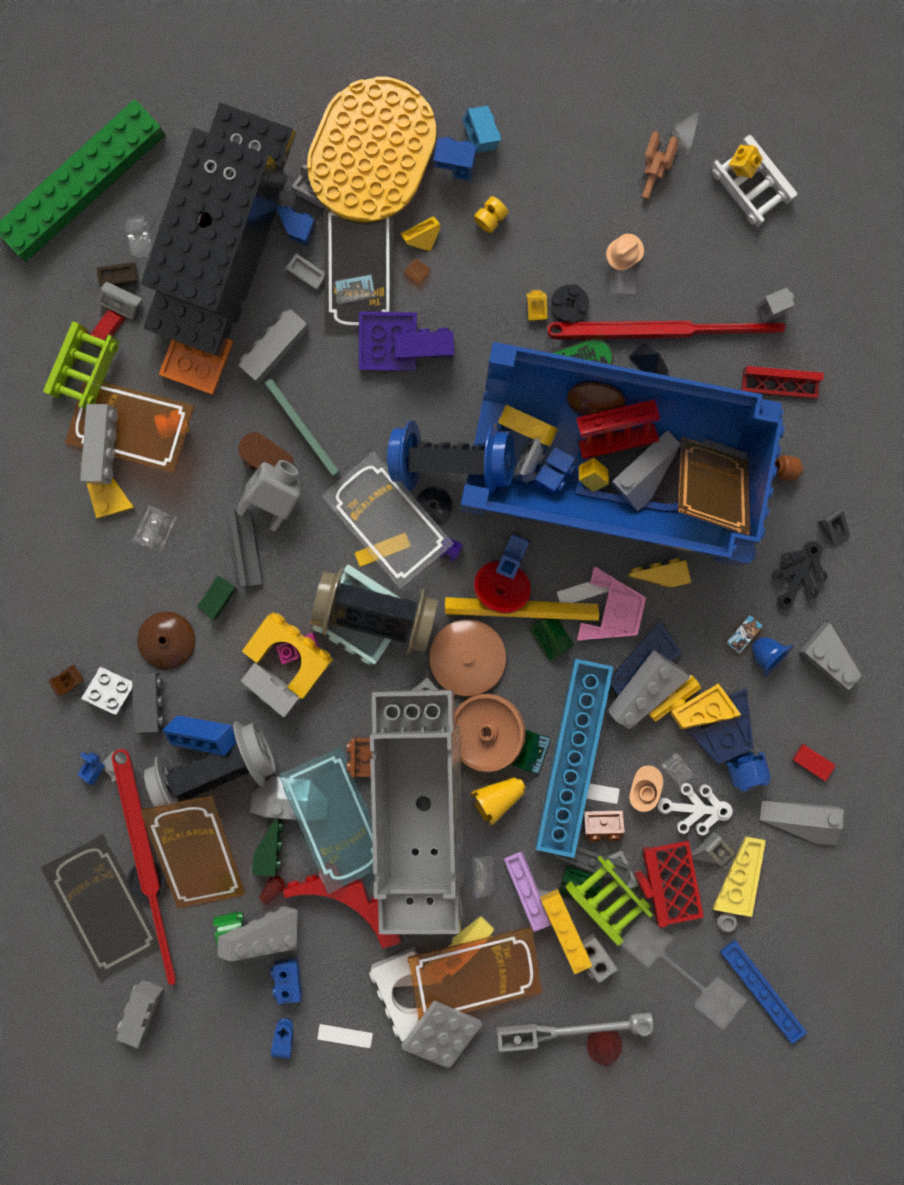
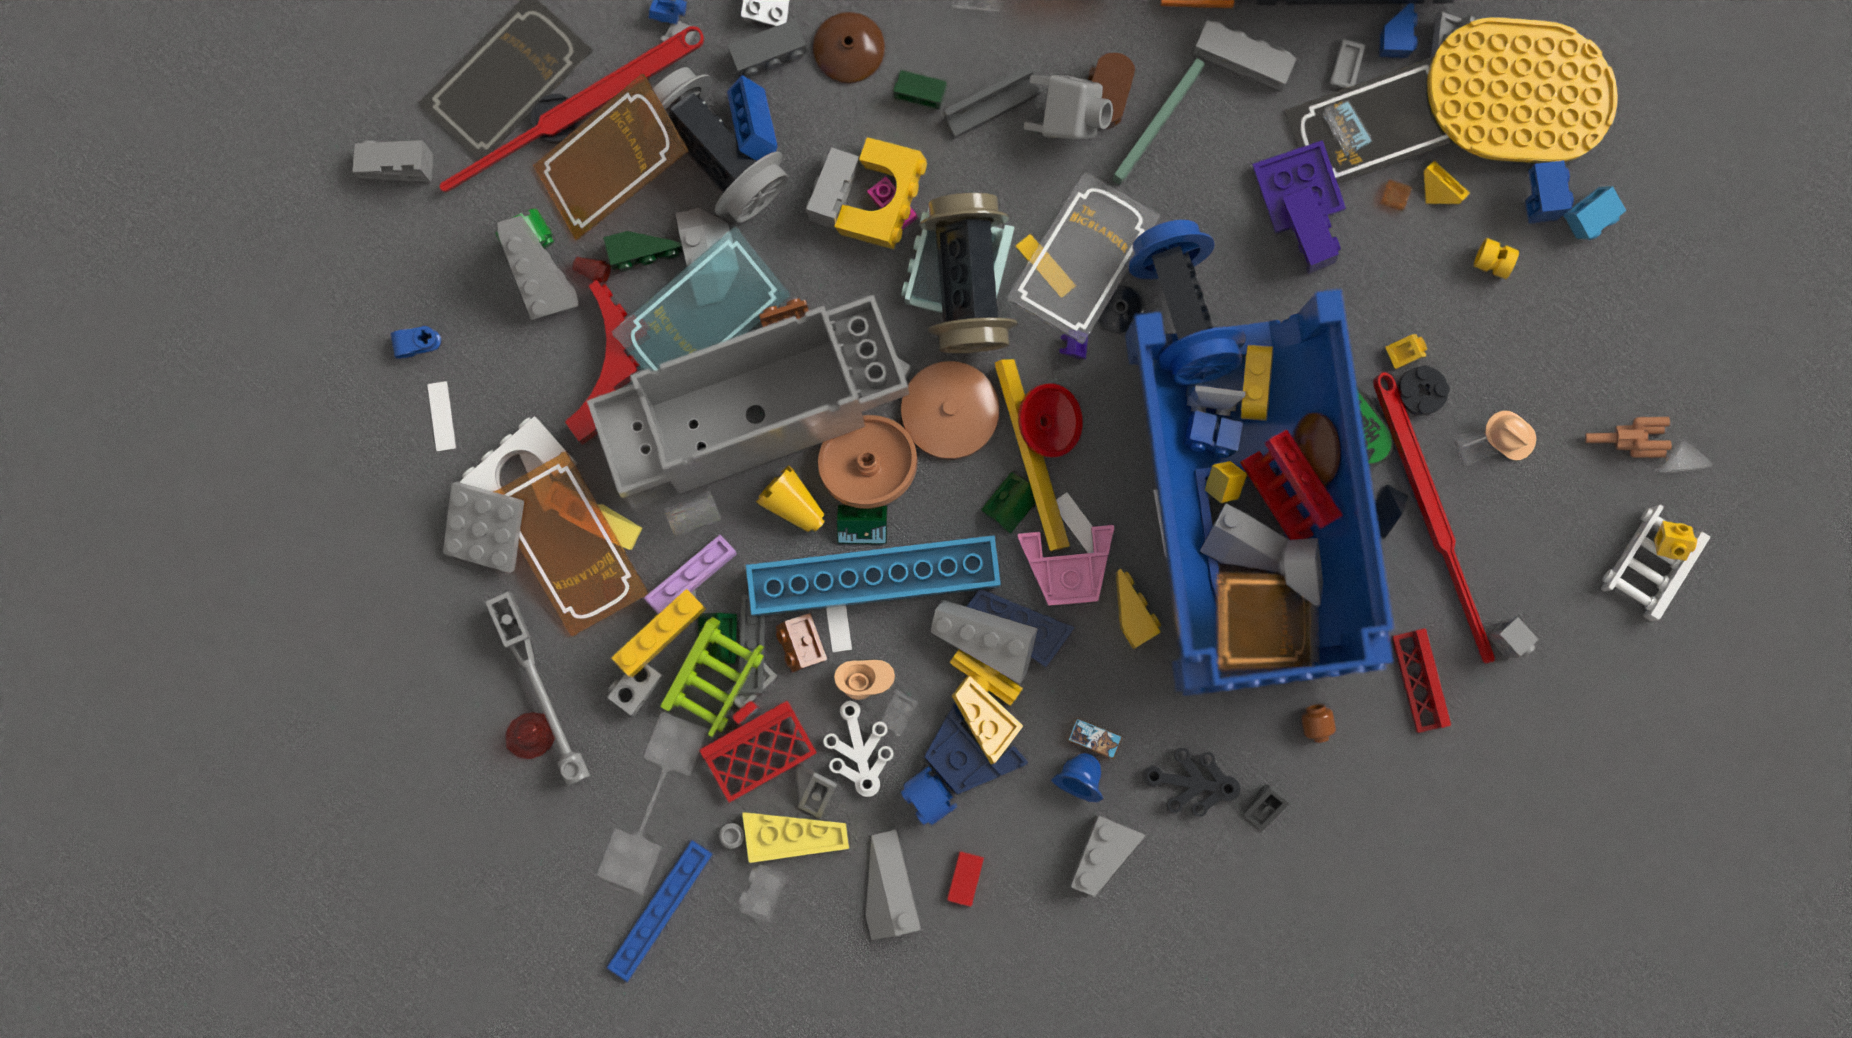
camera: 65 degrees right, 5 degrees down
(287, 981) = (487, 323): blue brick -> none
(512, 556) = (1092, 423): blue slope -> none
(681, 442) = (1303, 568): none -> light grey slope
(776, 912) = (763, 892): none -> clear bracket

